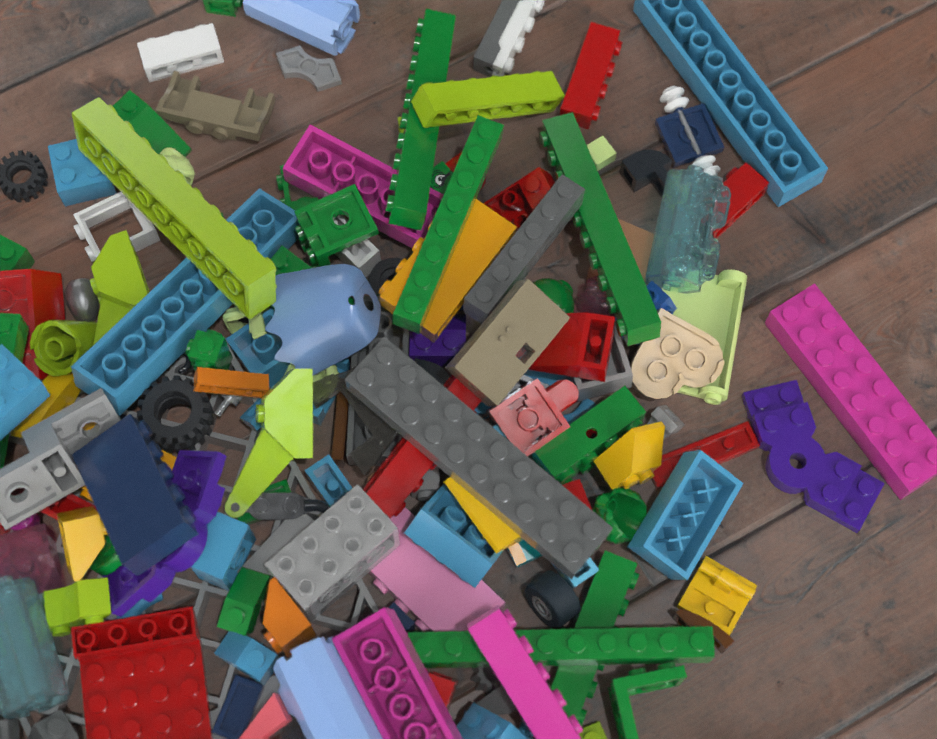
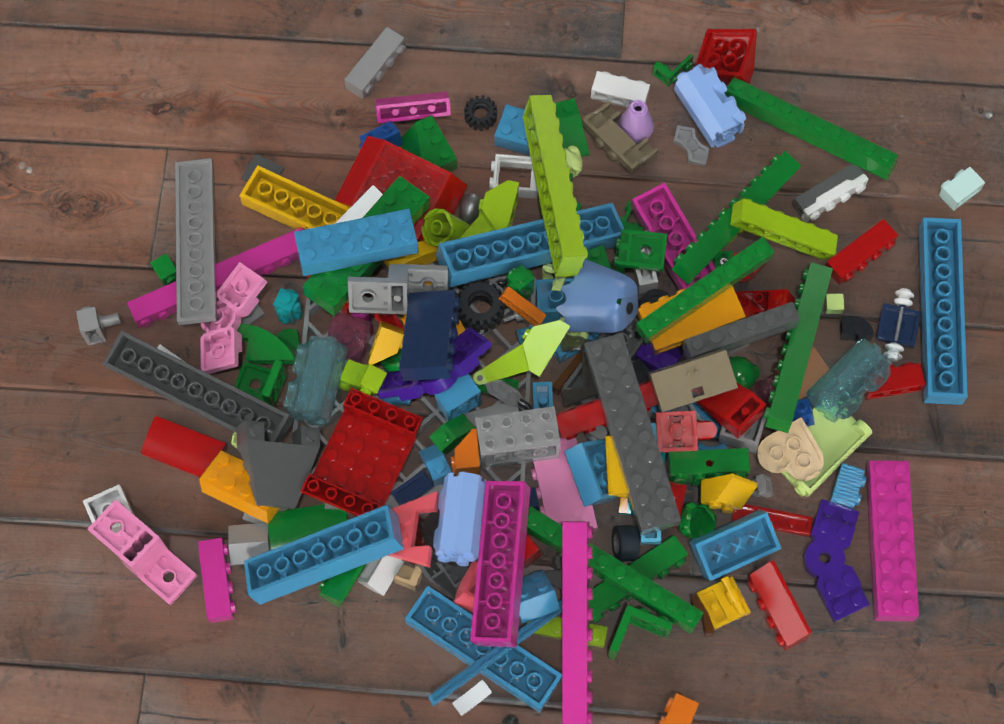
camera: 35 degrees right, 0 degrees up
(225, 73) = (637, 121): none -> lavender cone
(763, 357) = (848, 486): none -> dark azure brick
(787, 556) = (779, 606): none -> slope

